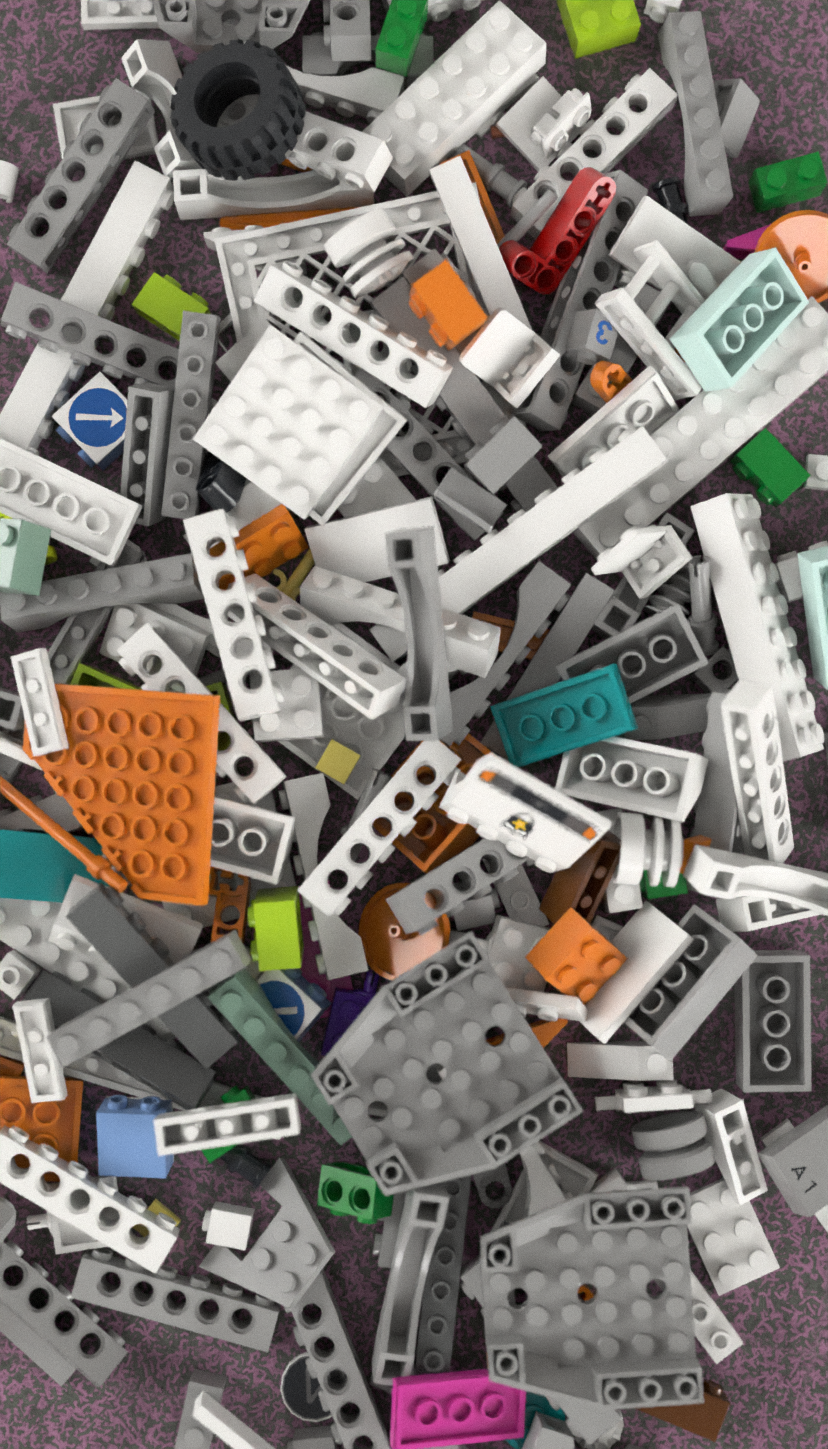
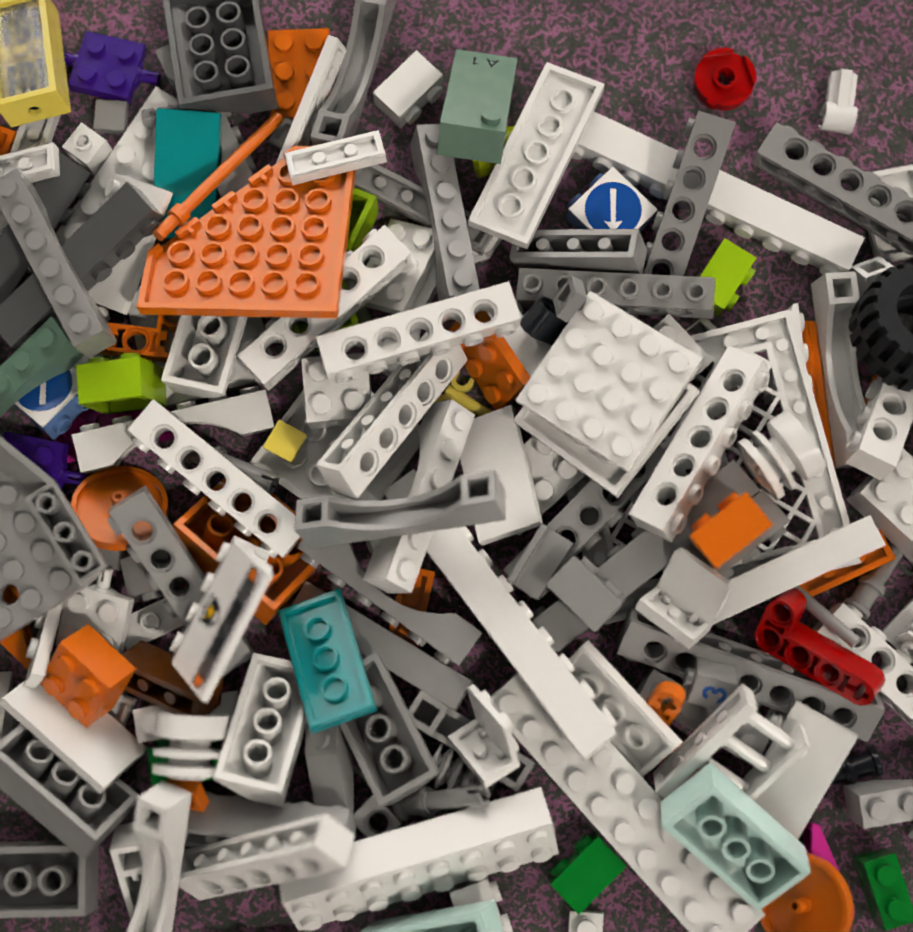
camera: 85 degrees right, 5 degrees down
(200, 460) = (570, 299): none -> light grey plate
(700, 278) = (777, 796): white bar -> none

